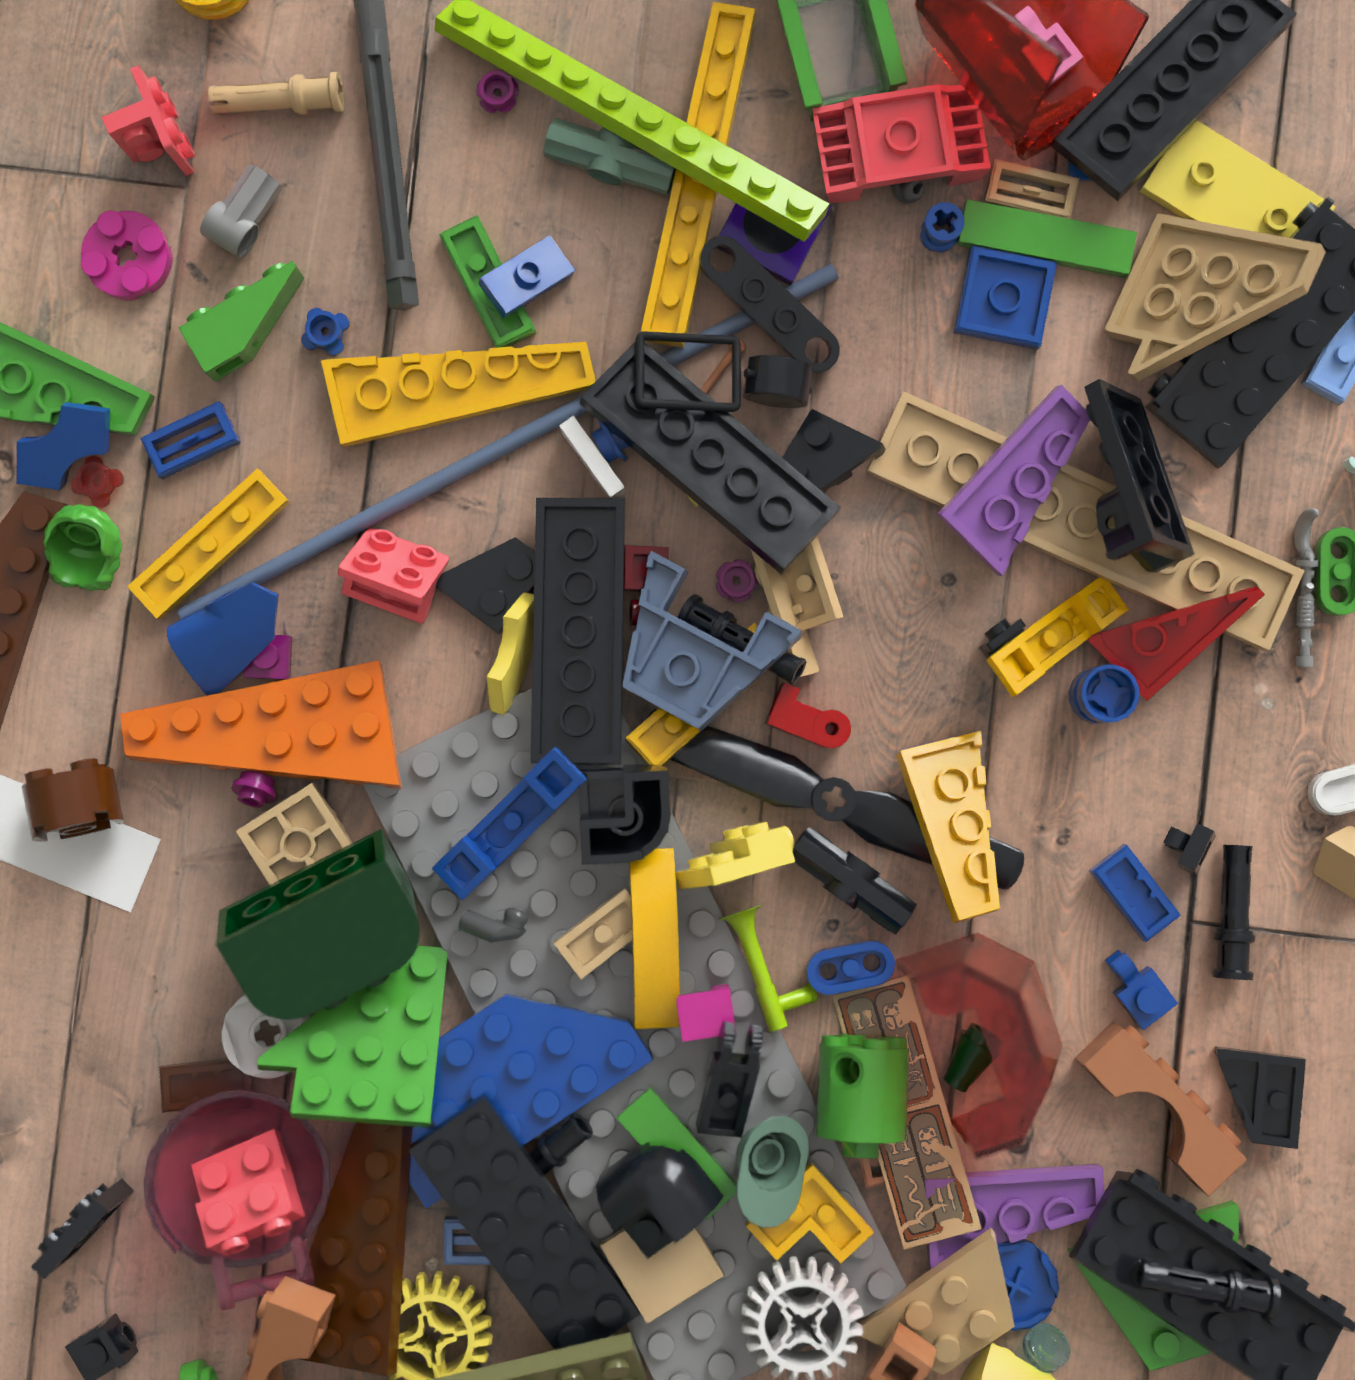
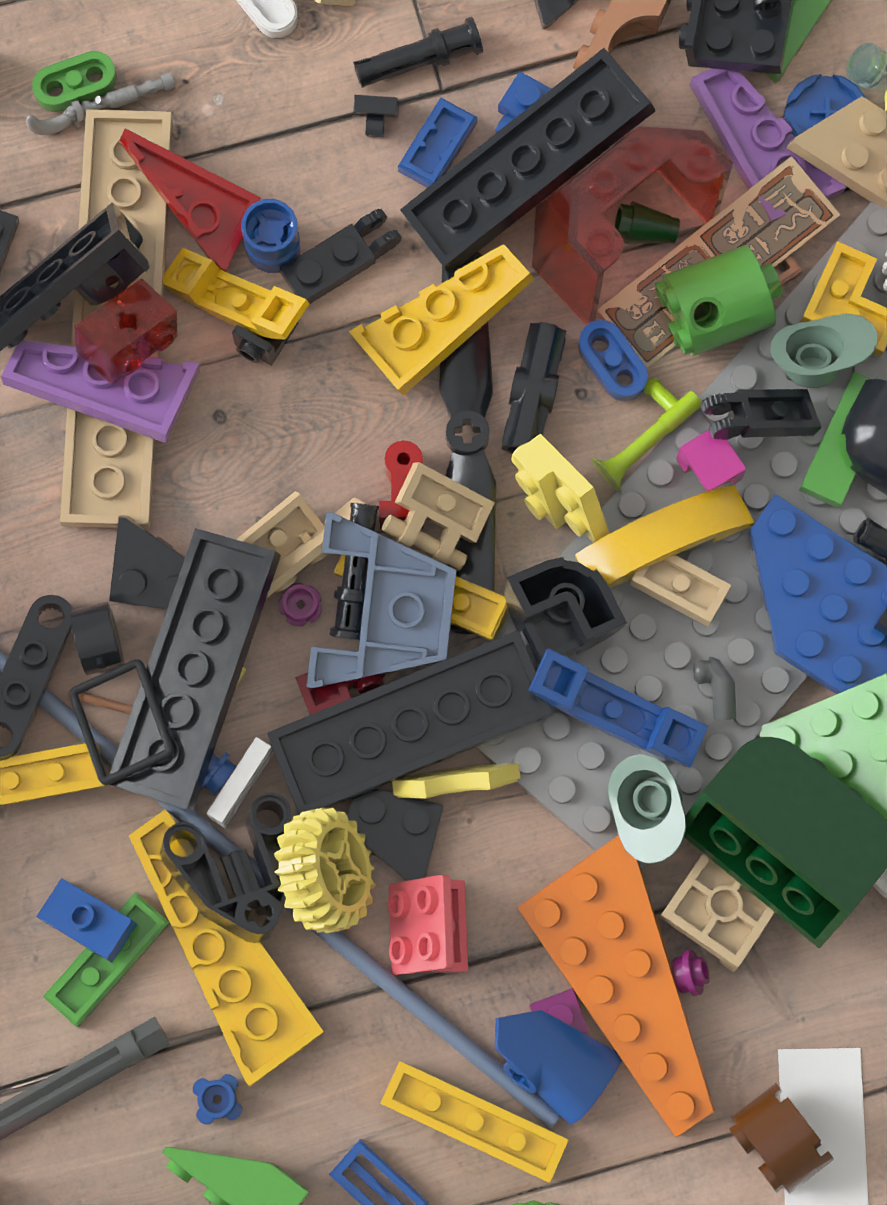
camera: 110 degrees left, 10 degrees down
(404, 809) = (647, 808): none -> piece
(475, 498) = (324, 870): none -> light yellow gear
(508, 386) = (203, 883): none -> black connector
(770, 745) = (444, 504): none -> tan plate
(1057, 517) = (126, 331): none -> clear red brick
(1058, 750) = (338, 258): none -> black hinge
(1077, 970) = (527, 160): none -> black plate

